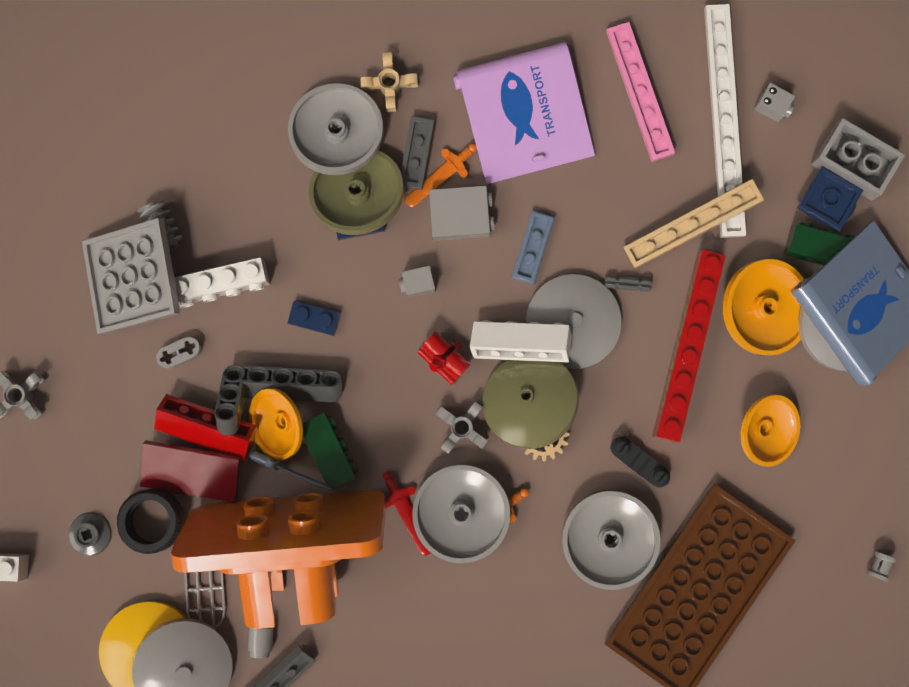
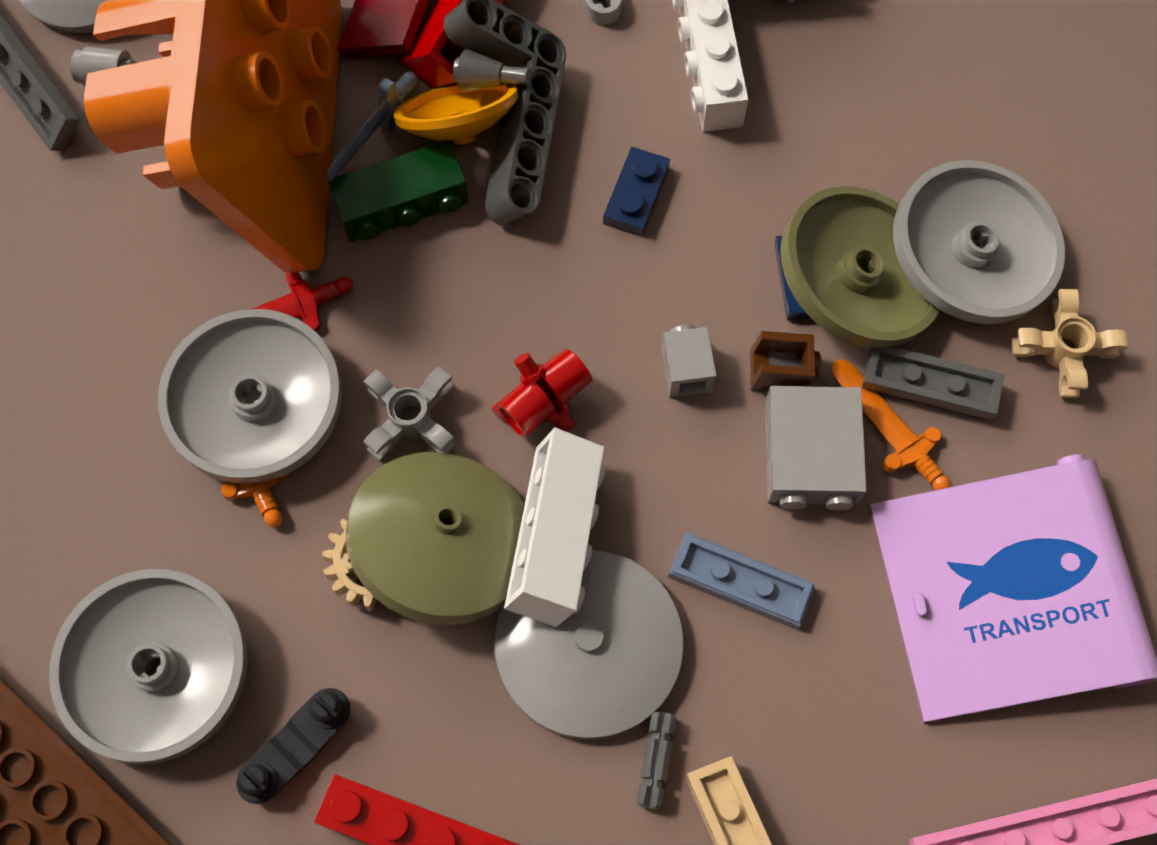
camera: 95 degrees right, 15 degrees down
(254, 412) = (478, 72): none -> dark grey cone
(413, 231) = (783, 360): none -> reddish brown window

